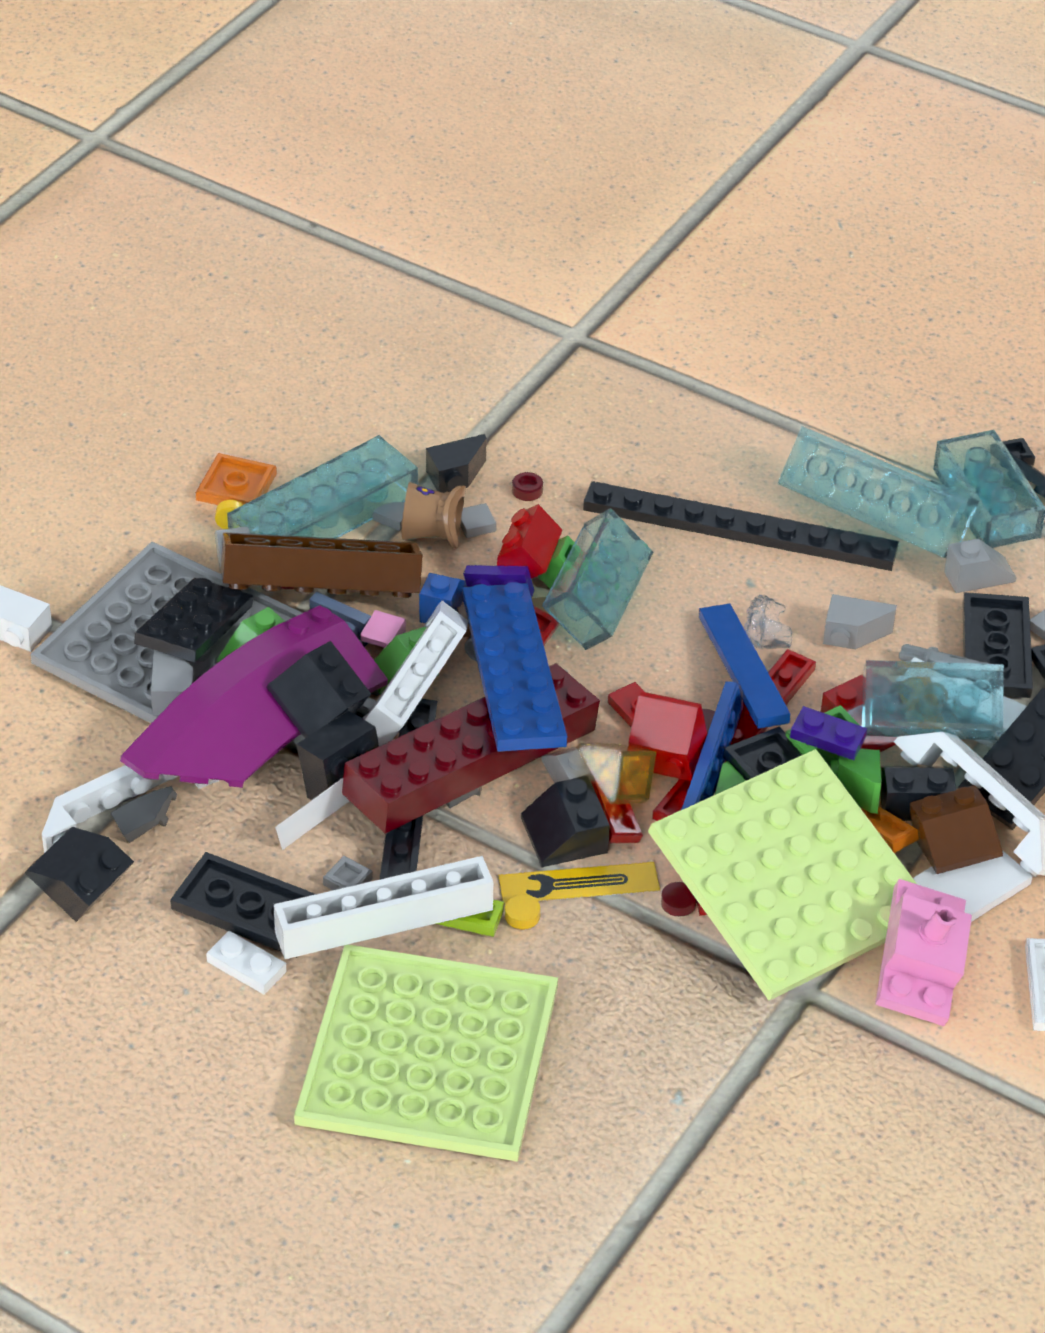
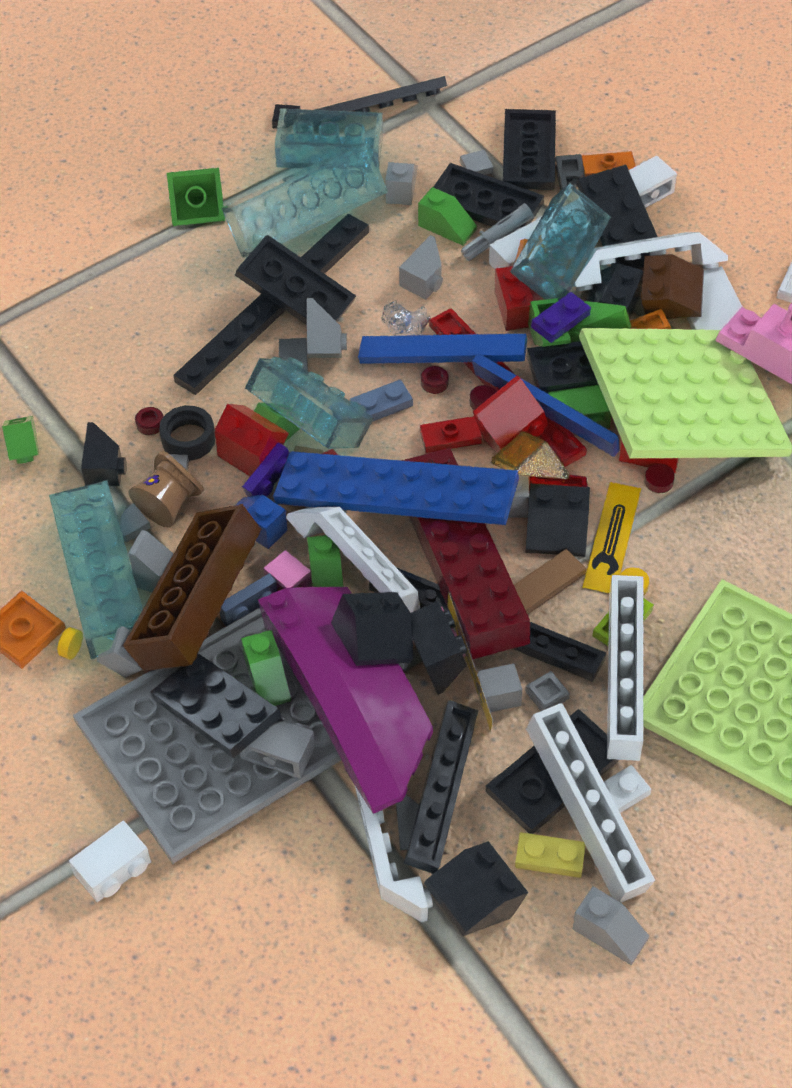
camera: 65 degrees left, 10 degrees up
(88, 988) = (610, 925): none -> light grey slope
(155, 929) = (550, 855): none -> light yellow plate
(184, 814) = (441, 788): none -> black plate
(205, 922) = (589, 804): none -> white brick
(327, 833) = (501, 687): none -> light grey panel
(340, 518) = (148, 560): none -> light grey slope
(448, 402) = (21, 439): none -> bright green slope
(480, 837) = (549, 580): none -> medium nougat tile
(518, 498) = (187, 416): none -> black tyre
(652, 646) = (385, 400): none -> sand blue plate
(671, 558) = (294, 348): none -> dark grey slope
(706, 562) = (323, 333): none -> light grey slope
(709, 679) = (434, 379): none -> dark red tile
(755, 524) = (291, 280): none -> black plate
(839, 414) = (195, 196): none -> bright green slope
(944, 616) = (445, 217): none -> bright green slope

